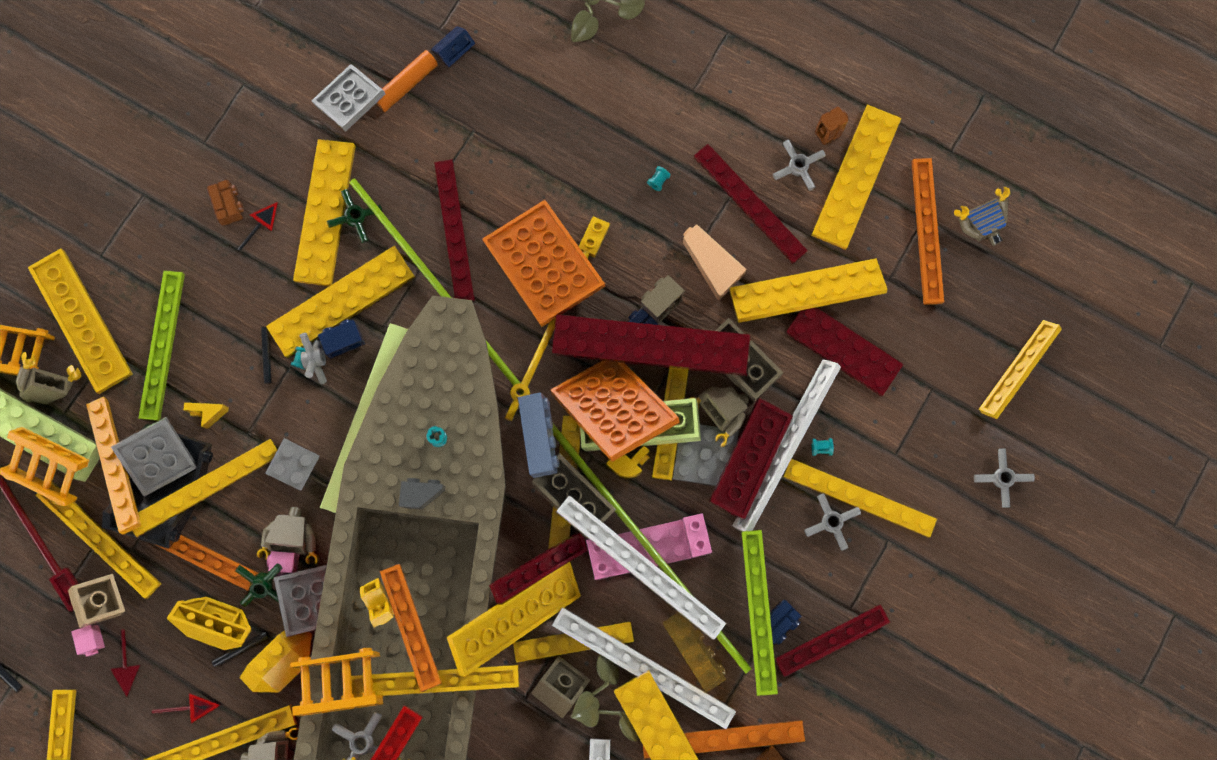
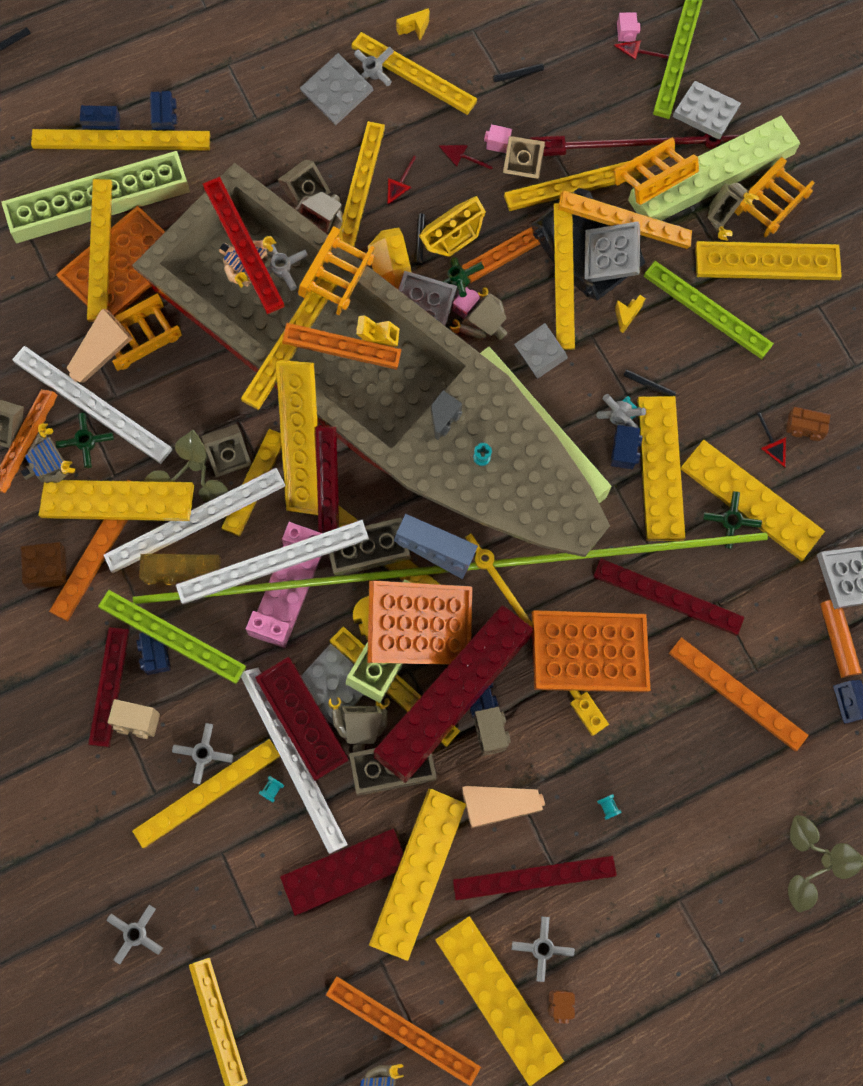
camera: 115 degrees right, 5 degrees down
(502, 134) = (738, 694): none -> orange plate
(846, 596) = (133, 718): none -> tan brick

